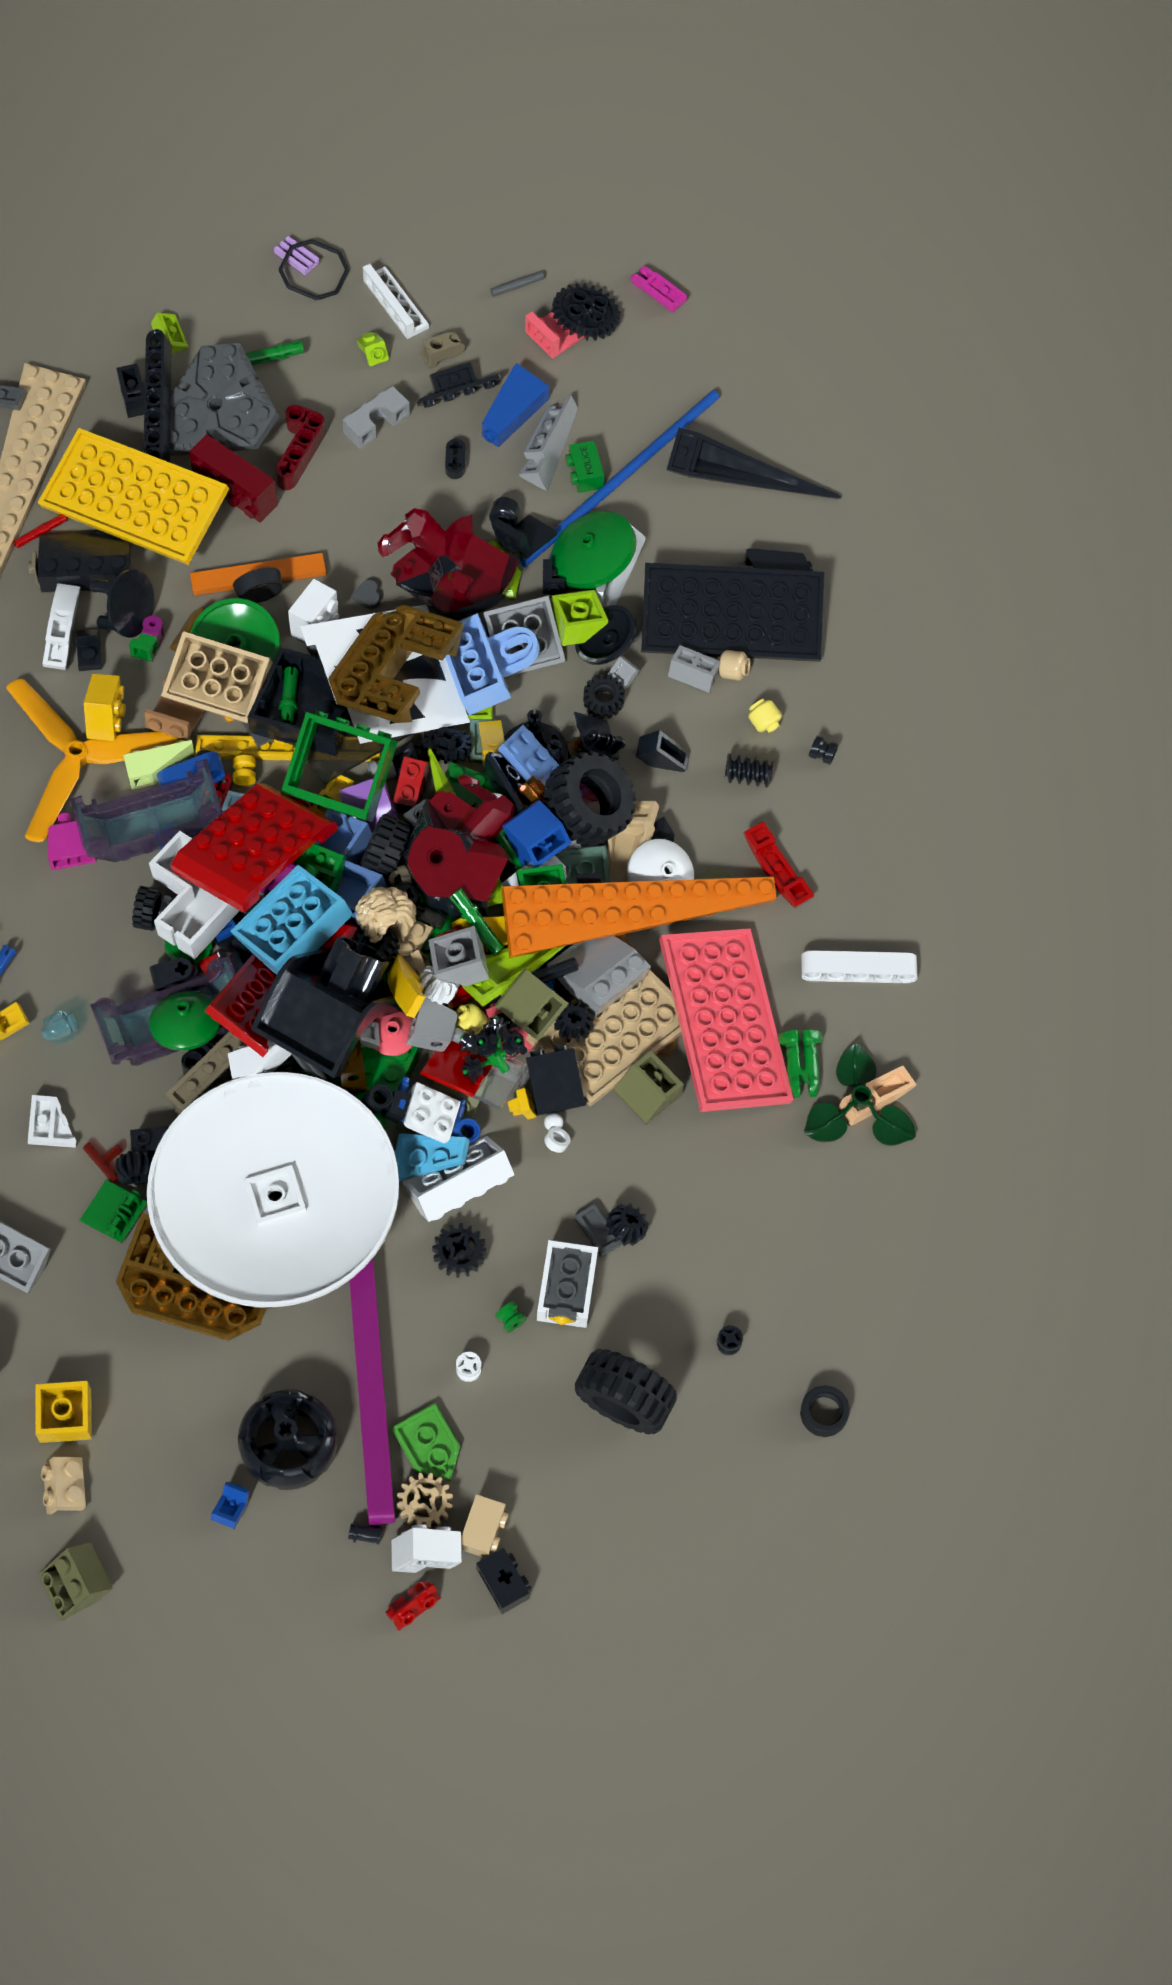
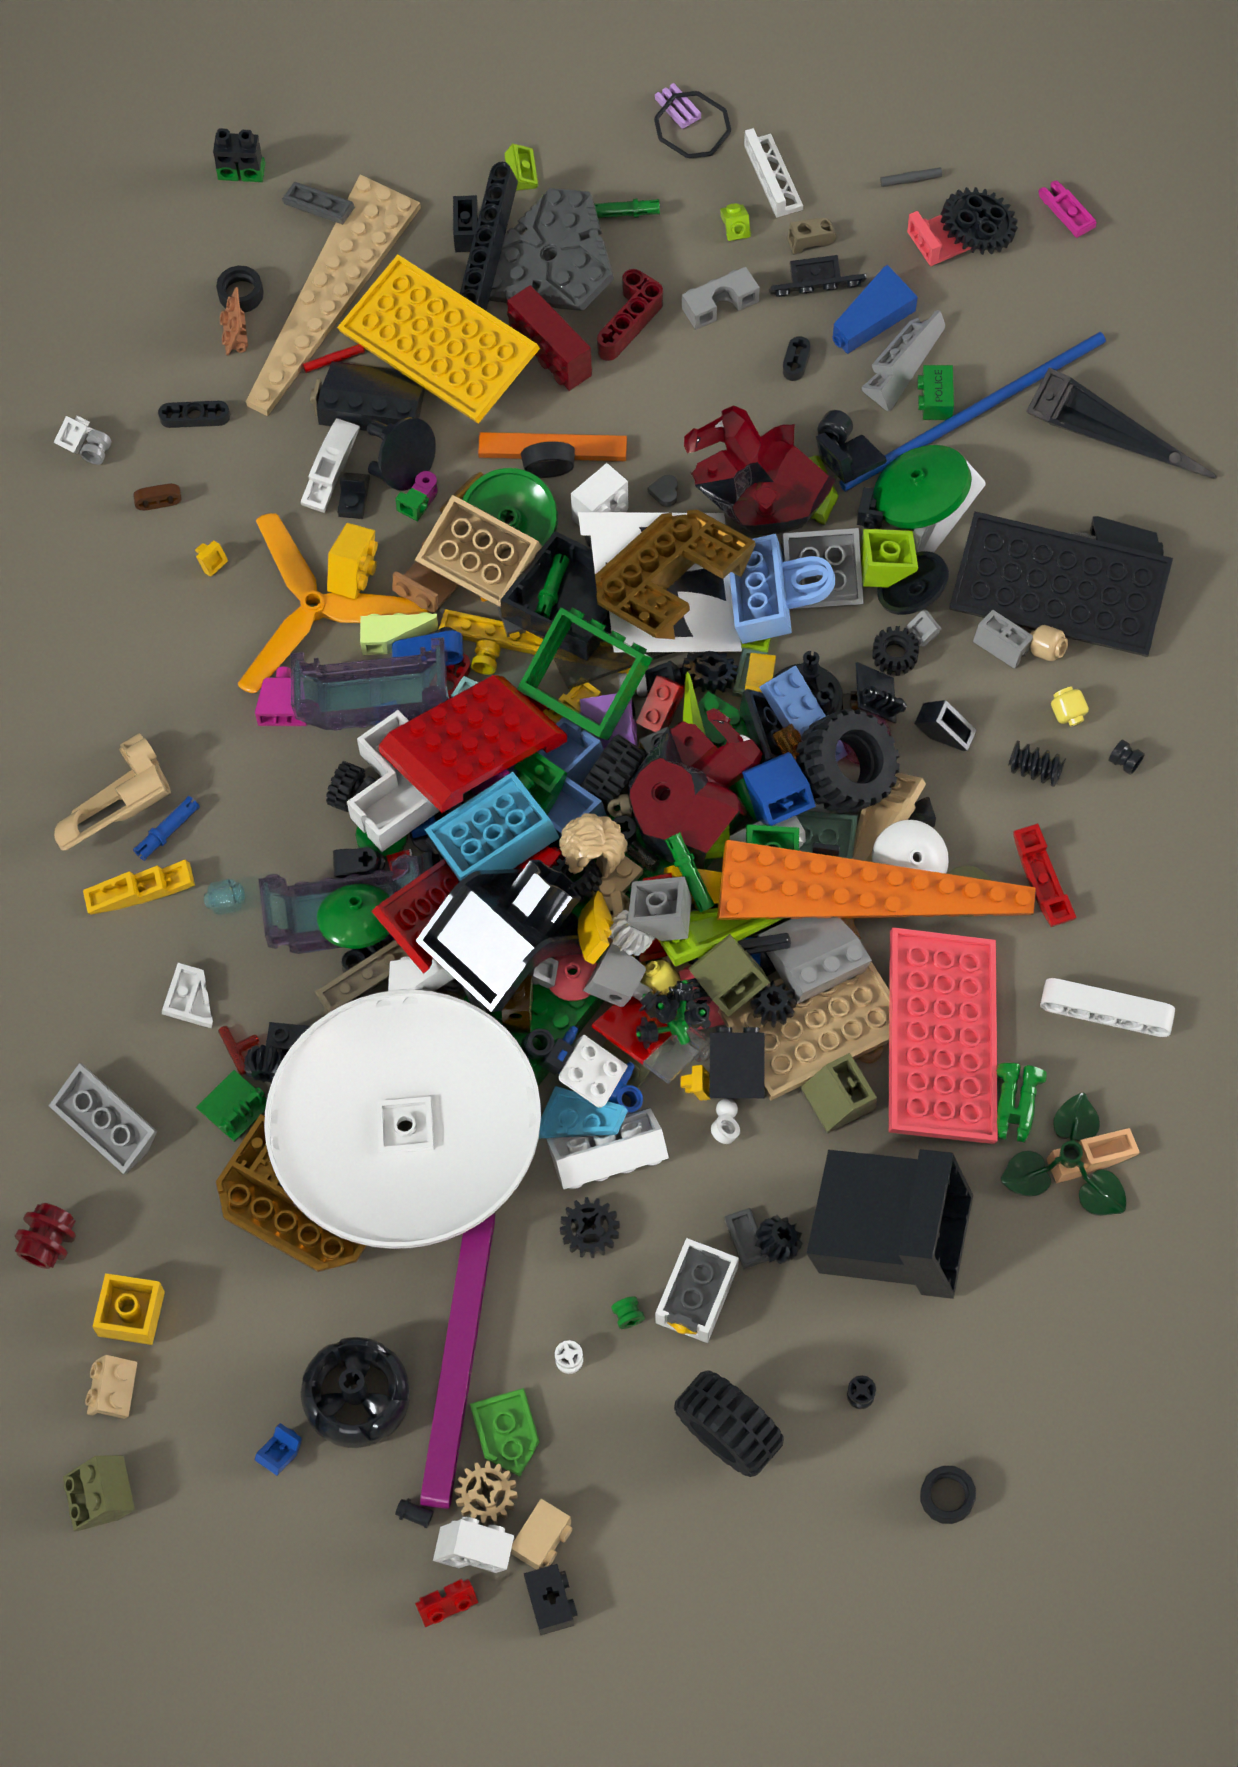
camera: 20 degrees right, 0 degrees up
(722, 1185) = (892, 1219): none -> black piece

